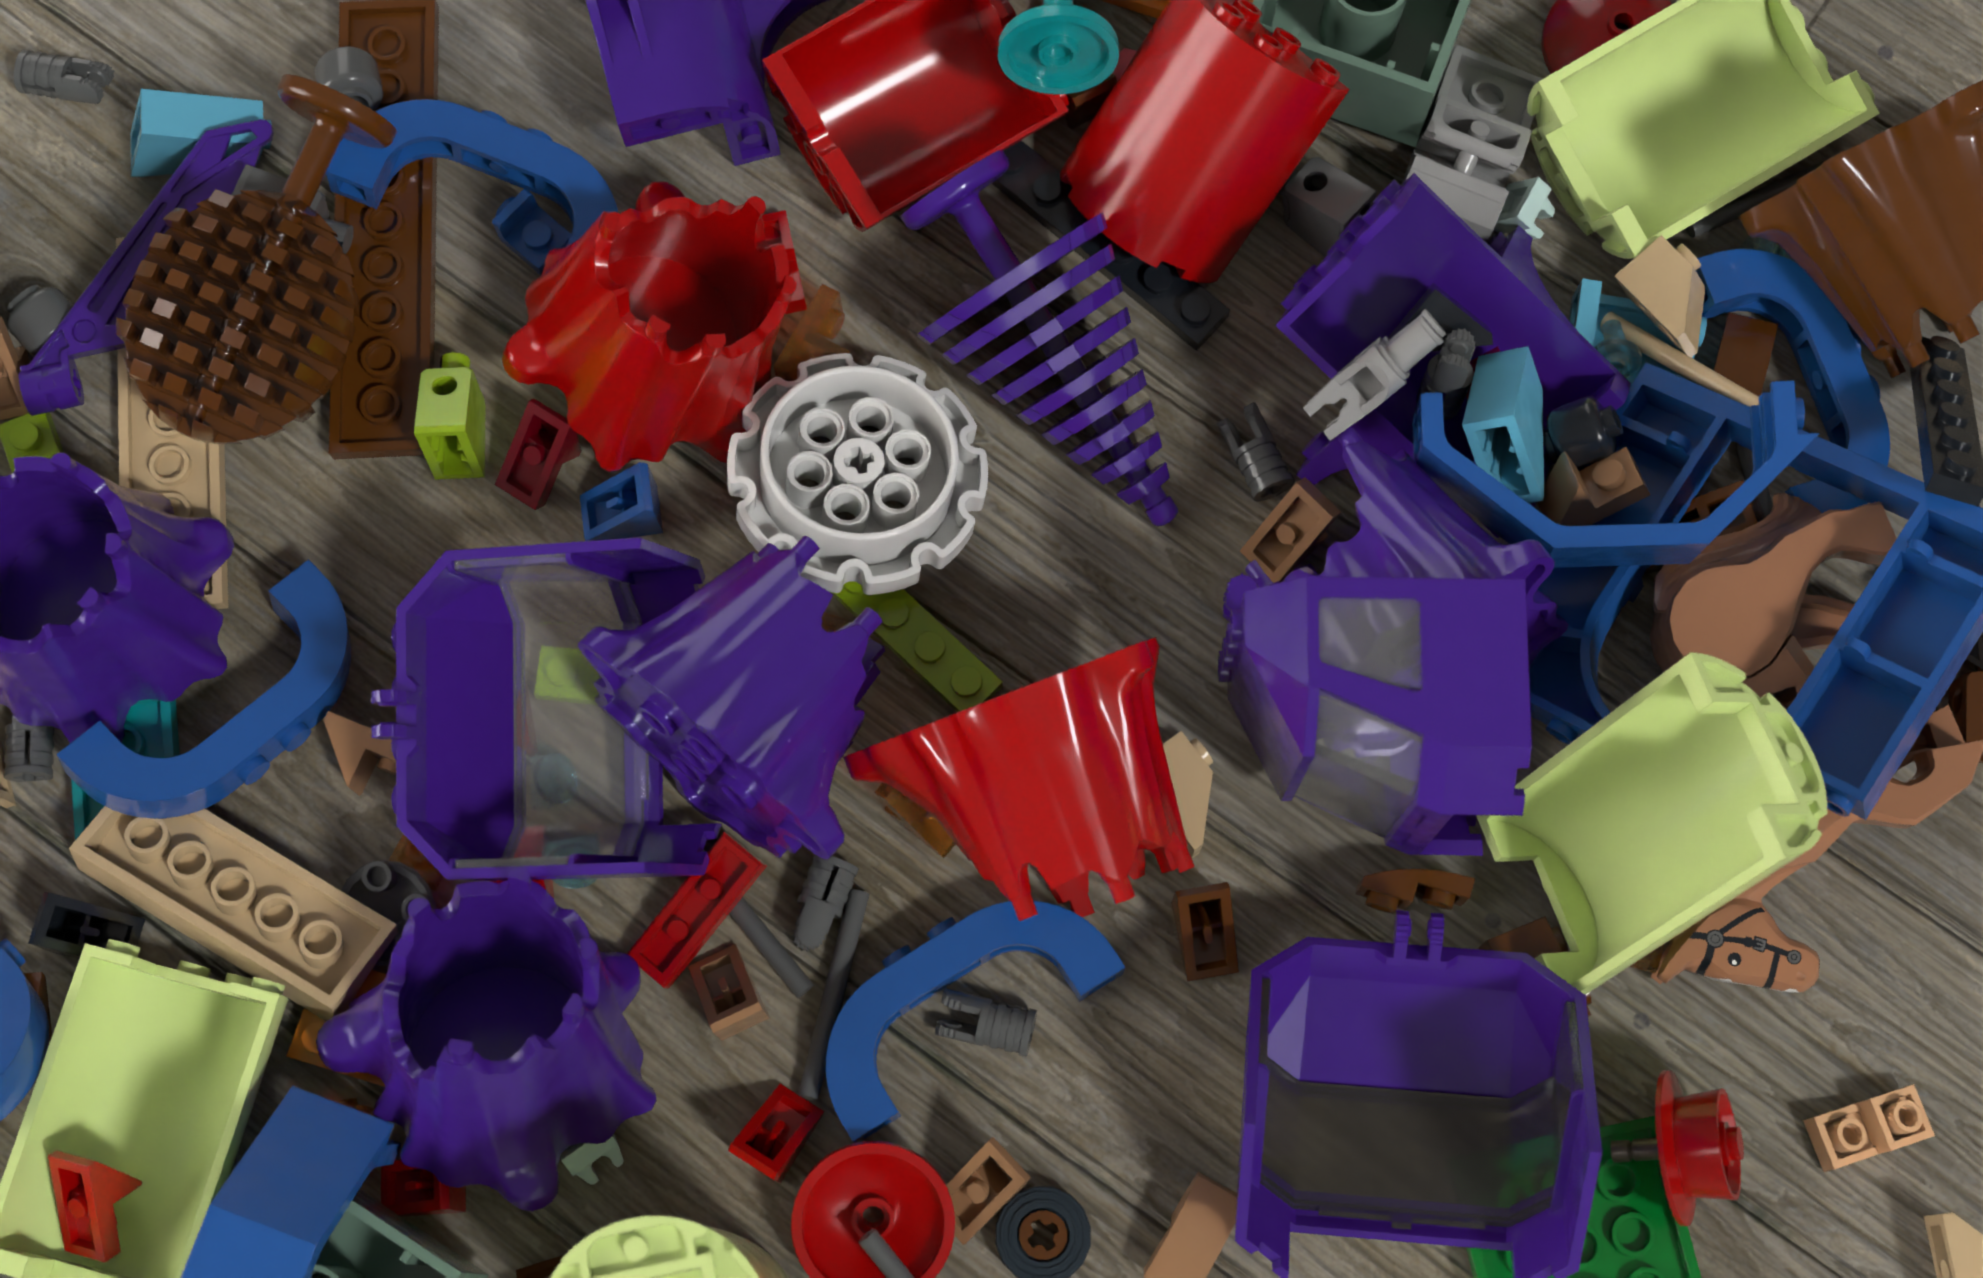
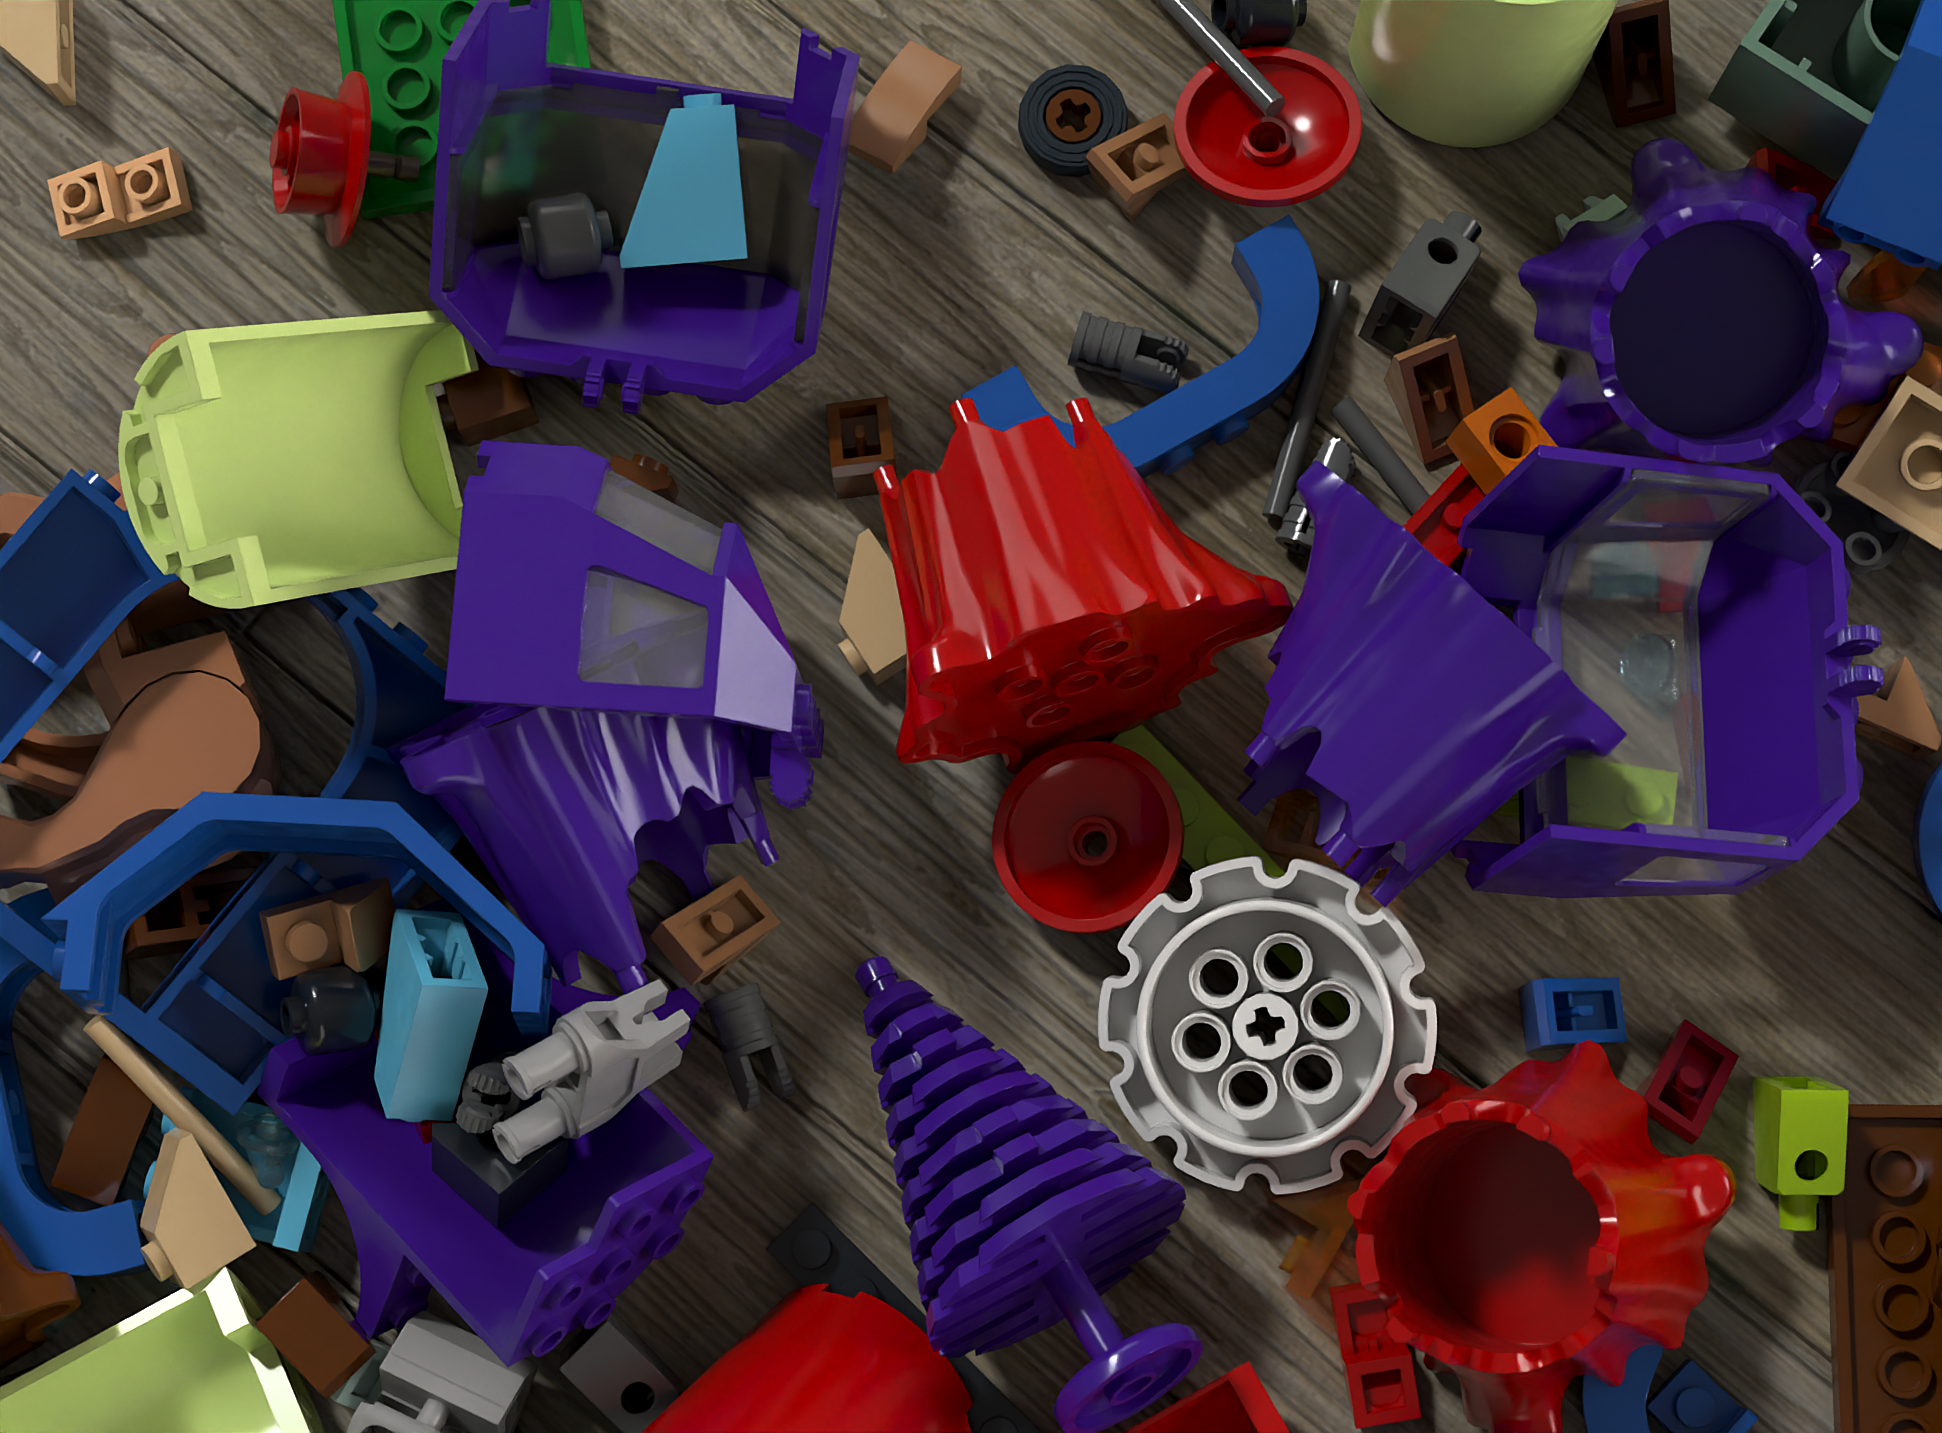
camera: 175 degrees left, 5 degrees up
(693, 947) = (1502, 420): none -> orange brick
(748, 1071) = (1423, 284): none -> dark grey torso
(777, 1133) = (1378, 233): red slope -> none
(1024, 590) = (1056, 812): none -> red dish
(1369, 1127) = (692, 191): none -> medium azure slope
(1477, 1086) = (563, 236): none -> dark grey head
(1561, 225) = (317, 1334): none -> reddish brown slope

